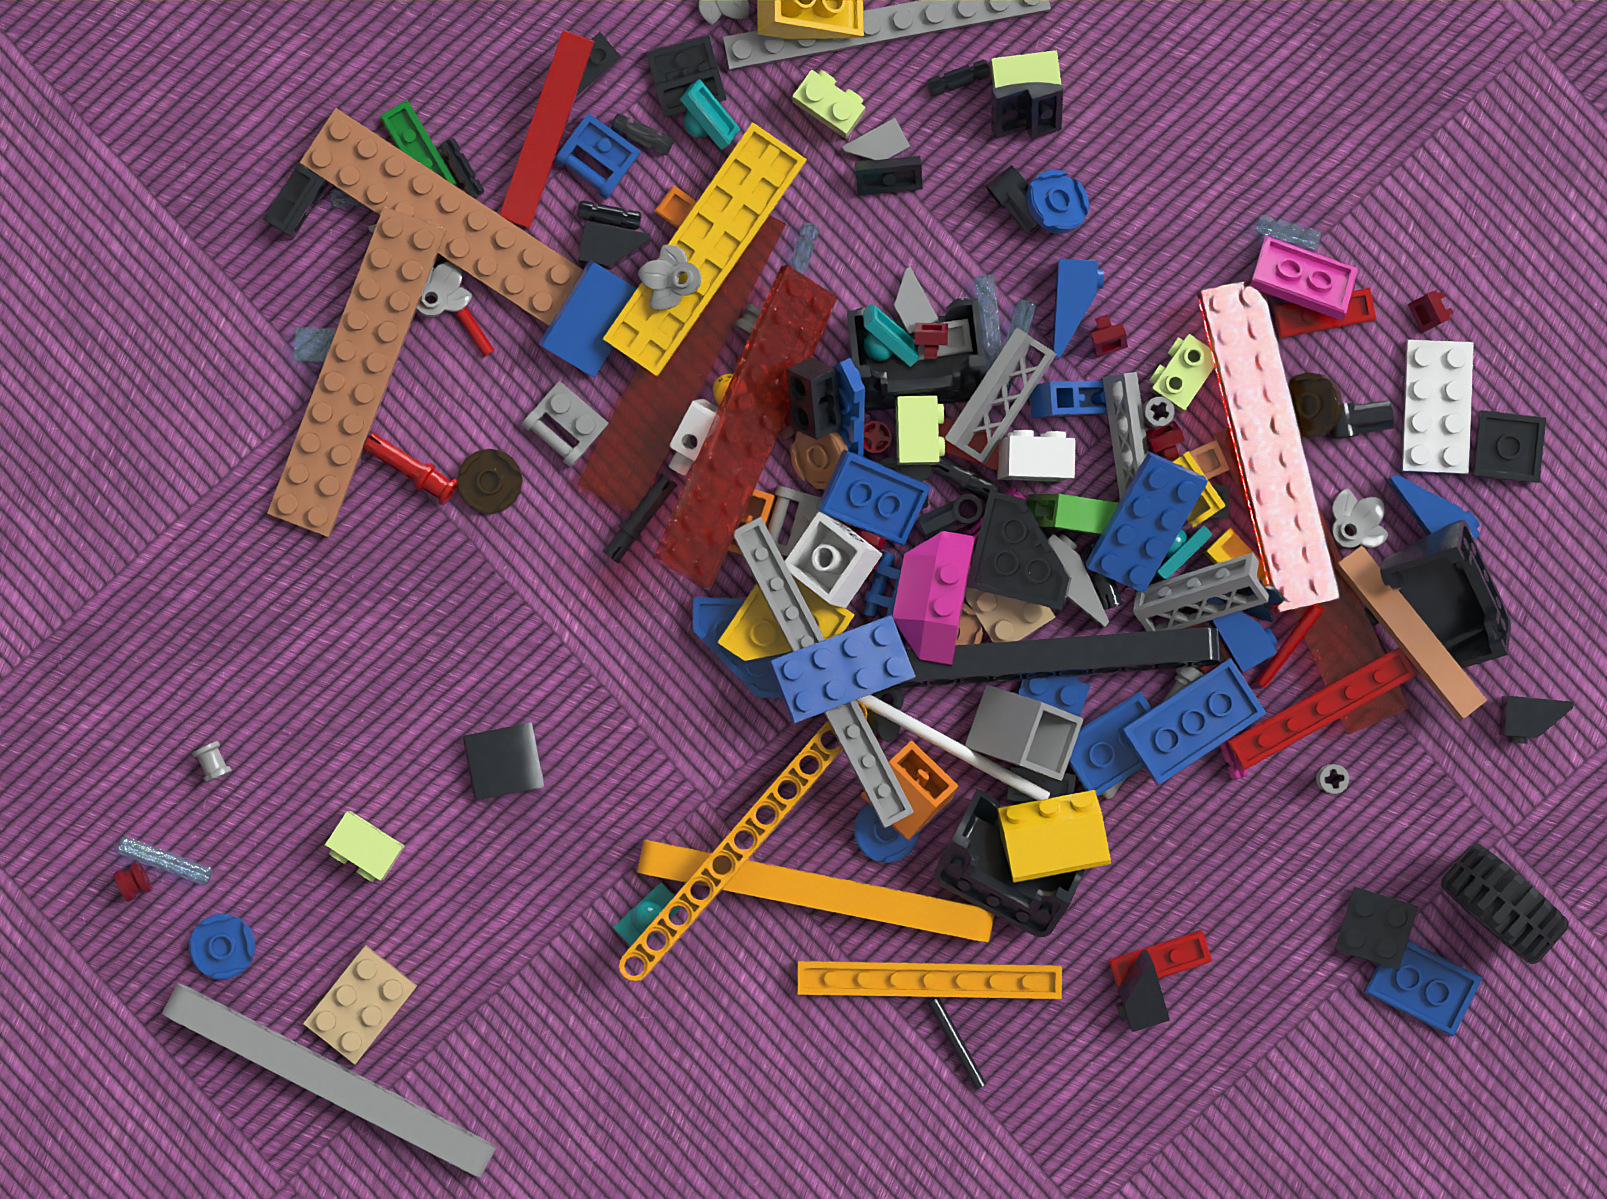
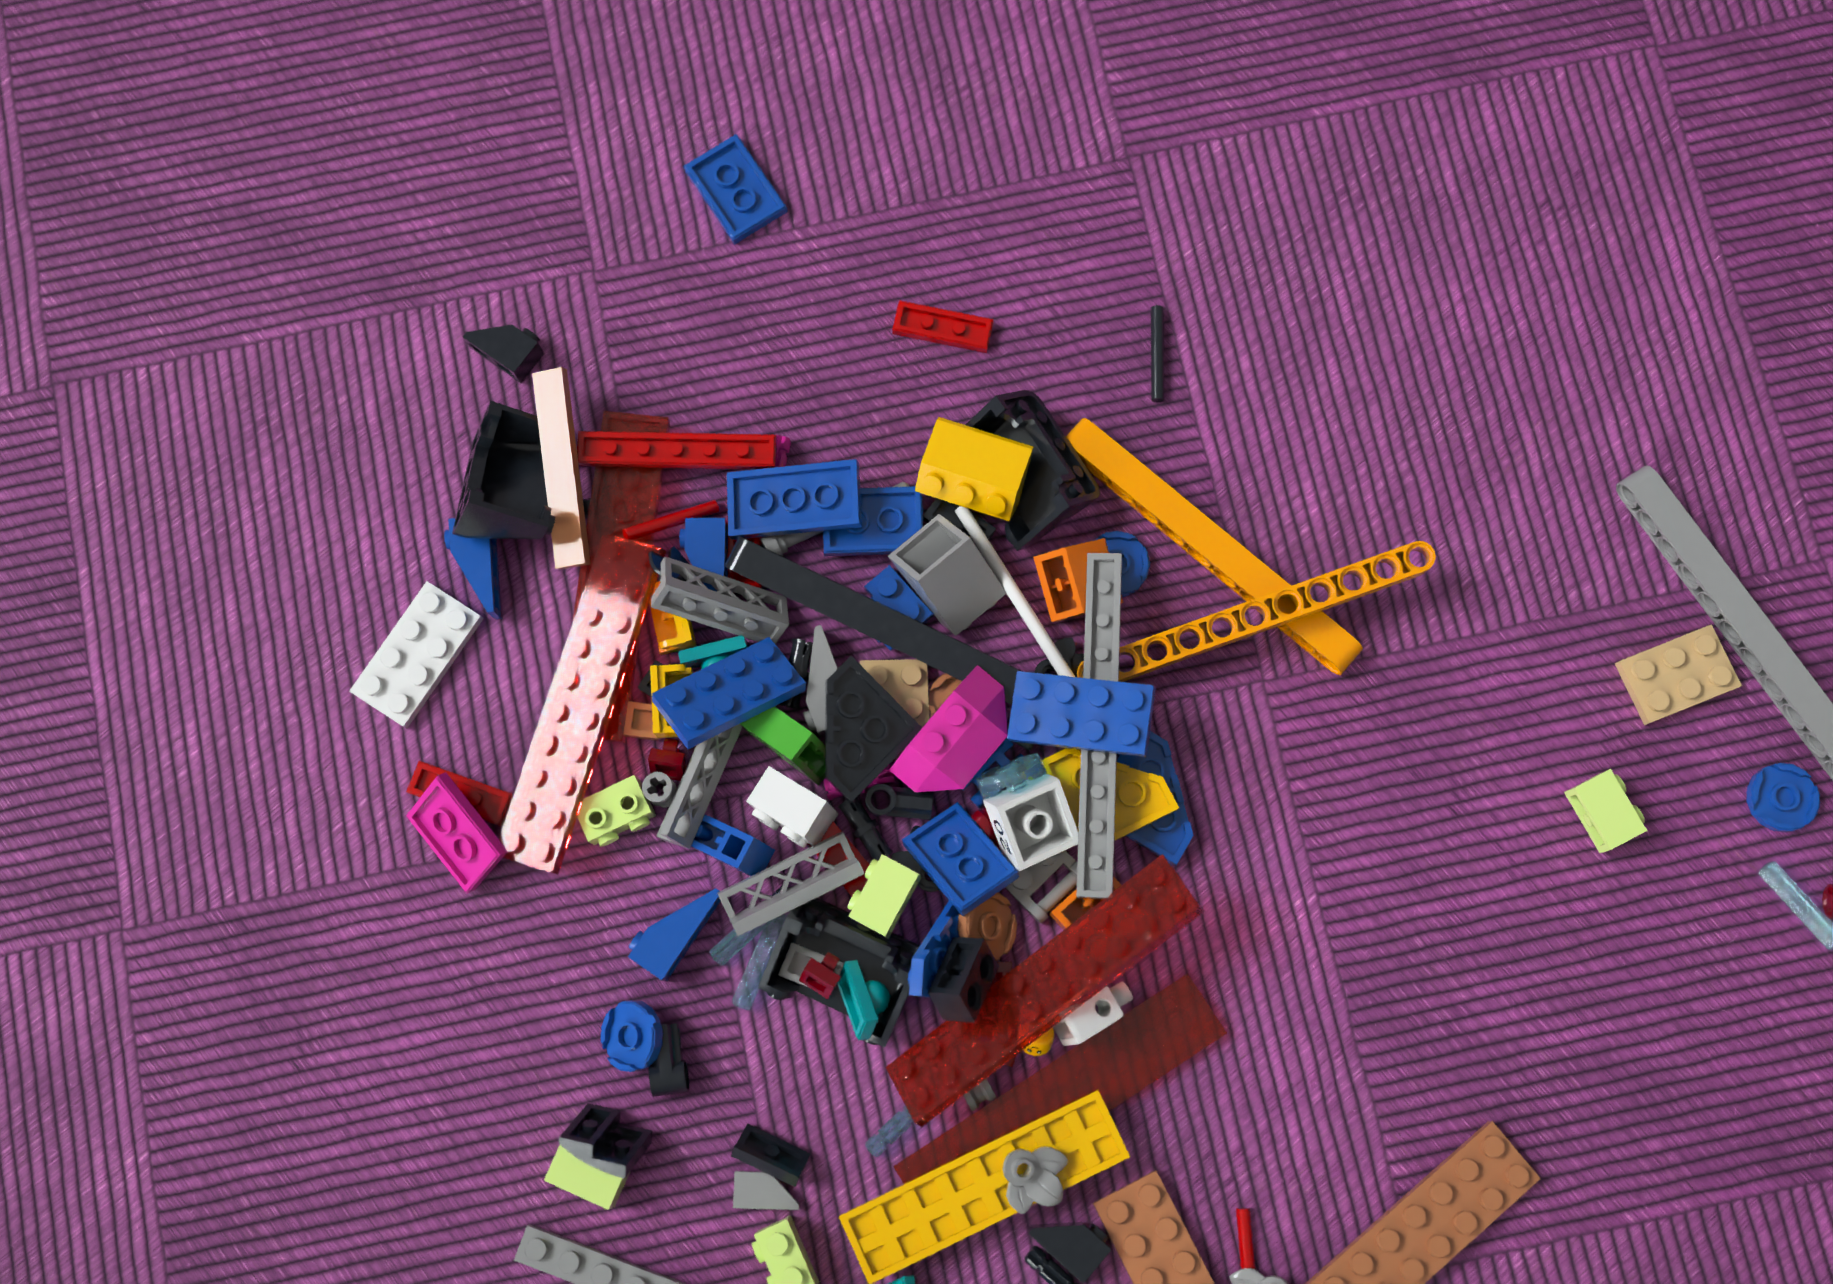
camera: 145 degrees left, 10 degrees down
(211, 761) = (1712, 971): light grey bush -> none
(423, 475) = (1370, 1126): red pin -> none
(490, 481) = (1307, 1084): dark brown tile -> none
(503, 761) = (1433, 816): black slope -> none
(573, 416) = (1195, 1100): light grey plate -> none
(586, 317) = (1133, 1186): blue tile -> none
(639, 518) = (1199, 961): black pin -> none
(644, 914) = (1373, 608): teal tile -> none
(675, 207) = (987, 1246): orange tile -> none
(869, 587) = (1011, 776): none -> clear light blue plate
(876, 432) = (925, 907): dark red wheel -> none
(913, 304) = (820, 1019): light grey tile -> none
(929, 979) = (1152, 417): light orange plate -> none
(958, 77) = (651, 1210): black axle -> none
(1108, 337) = (662, 882): dark red tile -> none
(1141, 995) = (976, 301): black slope -> none
(1288, 231) = (445, 885): clear light blue axle -> none
(1315, 403) = (516, 715): dark brown tile -> none
(1340, 785) = (700, 382): light grey bush -> none
(1361, 518) = (542, 595): light grey plate -> none
(1362, 419) = (495, 684): black piece -> none
(1376, 928) = (744, 250): black plate -> none
(1430, 310) = (368, 739): dark red tile -> none
(1504, 903) = (624, 197): black tyre -> none
(1509, 446) = (378, 583): black plate -> none

